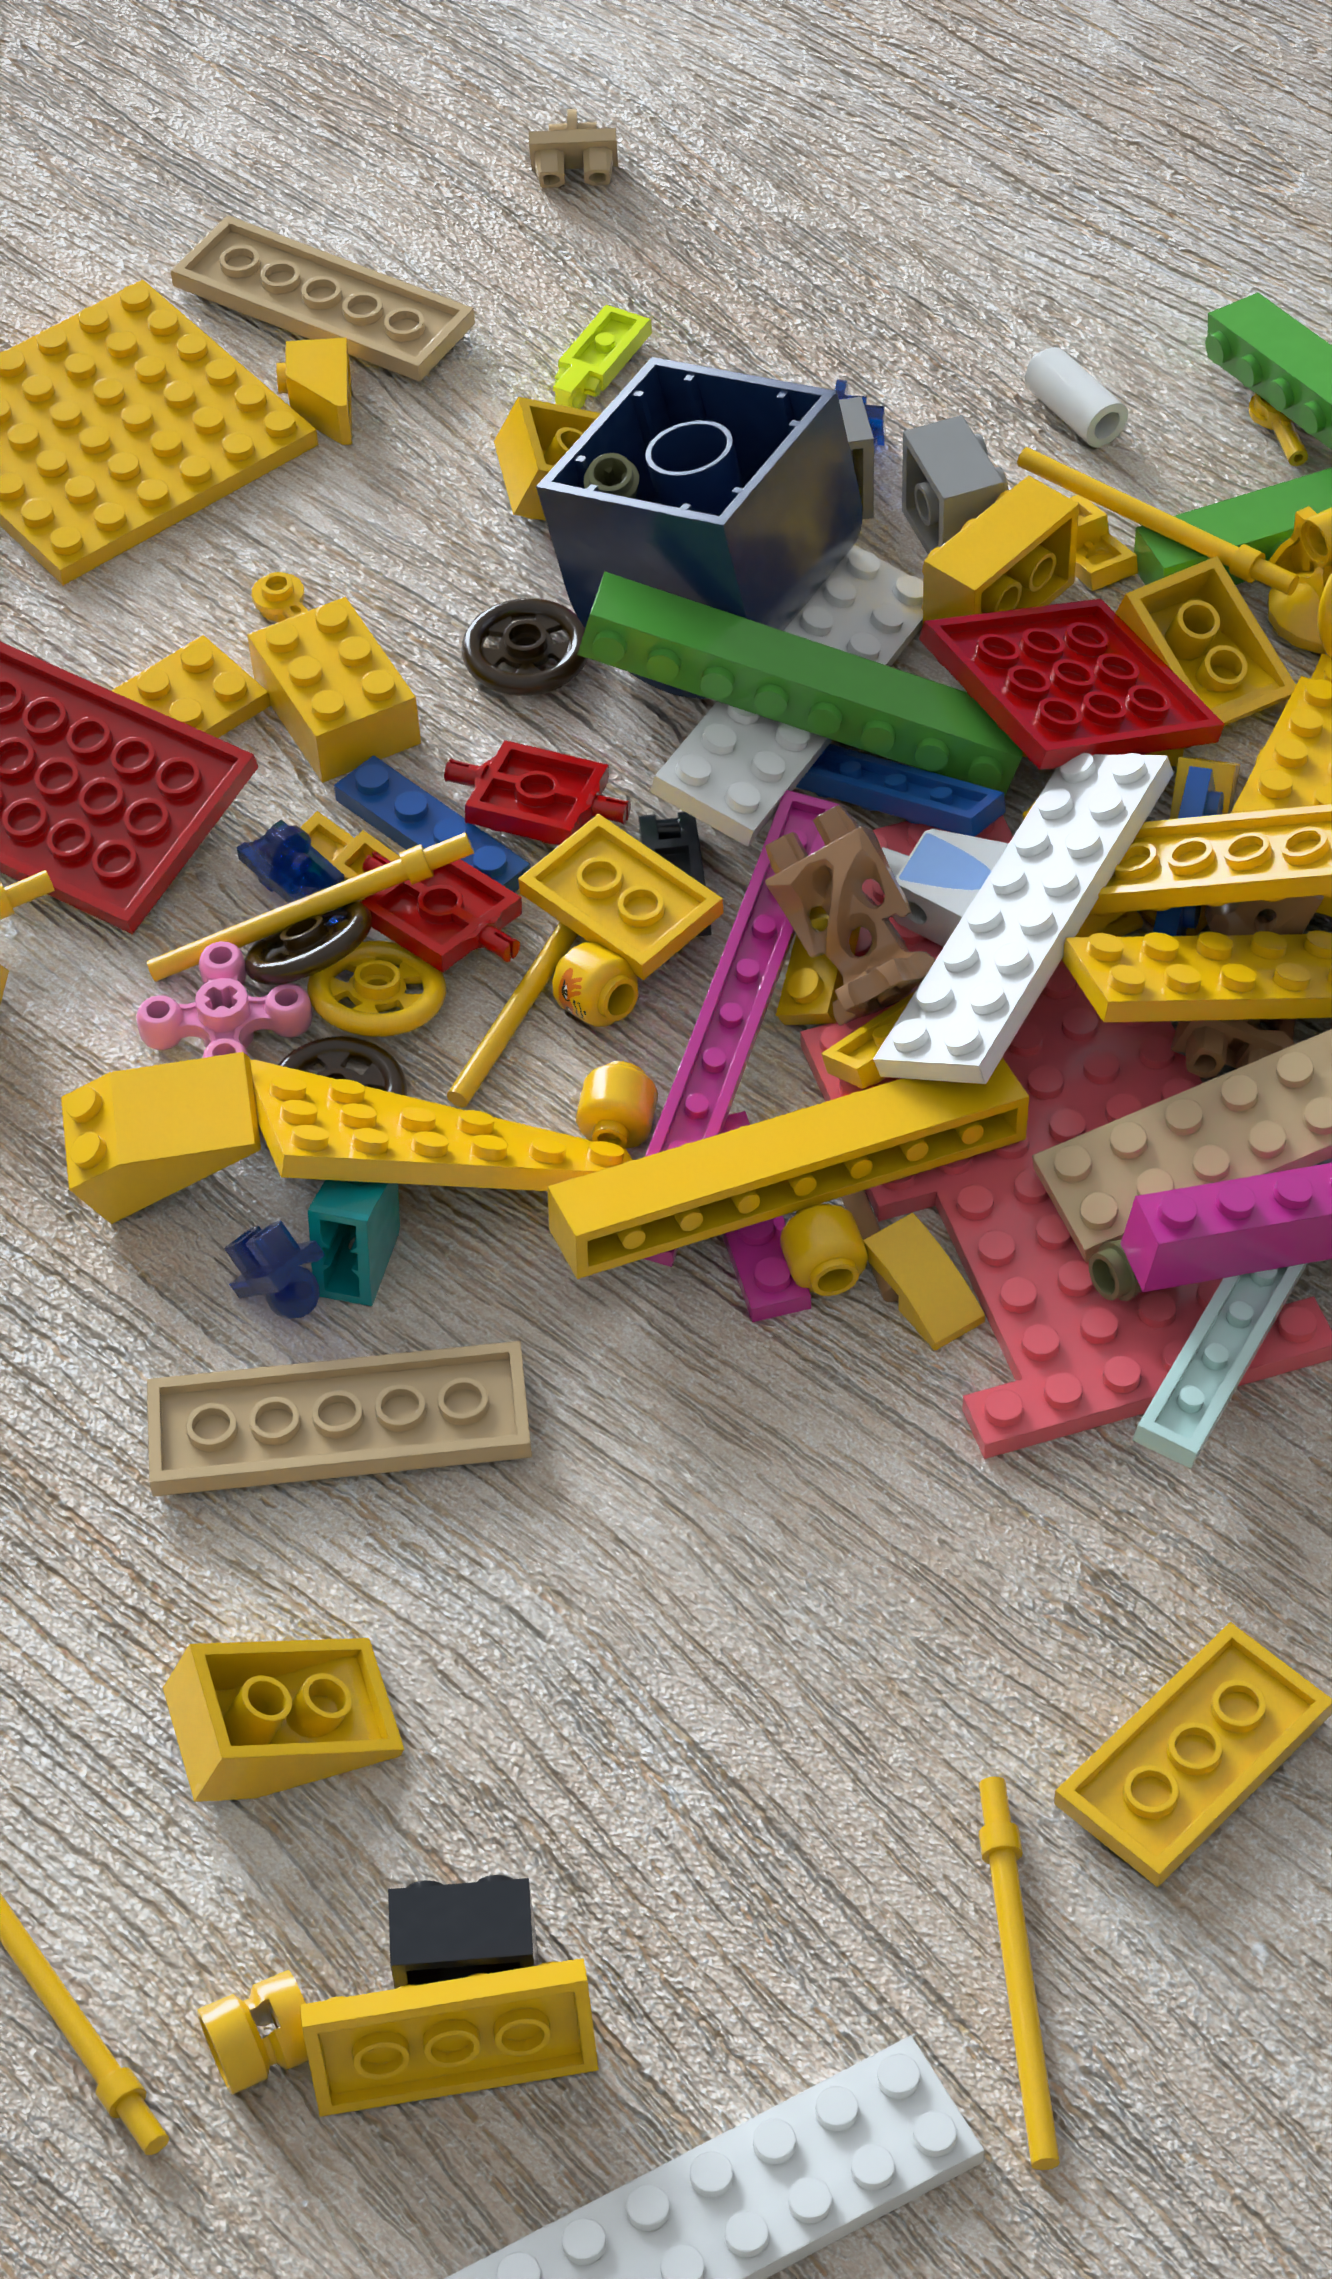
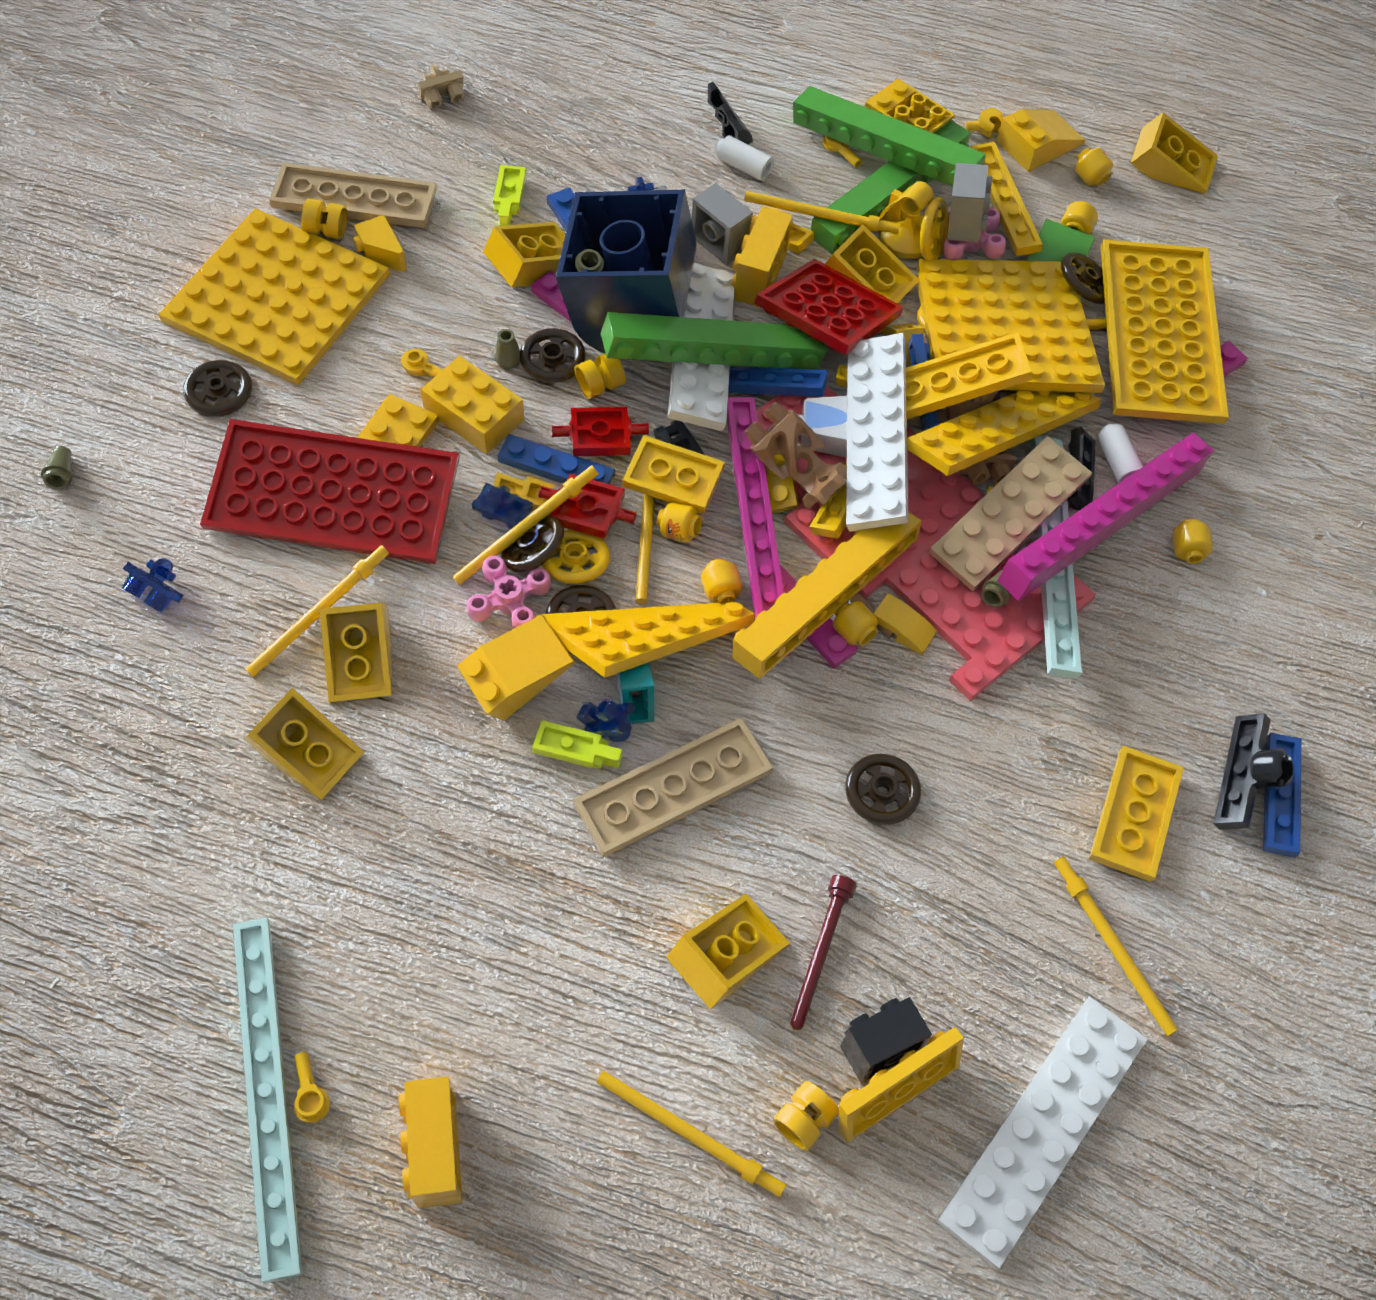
camera: 30 degrees left, 10 degrees up
(203, 1298) = (575, 746): none -> neon yellow hinge
(245, 322) = (315, 216): none -> yellow wheel
(444, 613) = (507, 350): none -> olive cone
(542, 1692) = (841, 890): none -> dark red piece
(586, 699) = (598, 375): none -> yellow wheel
(722, 1503) = (902, 774): none -> dark brown plate
(1080, 329) = (726, 115): none -> black slope

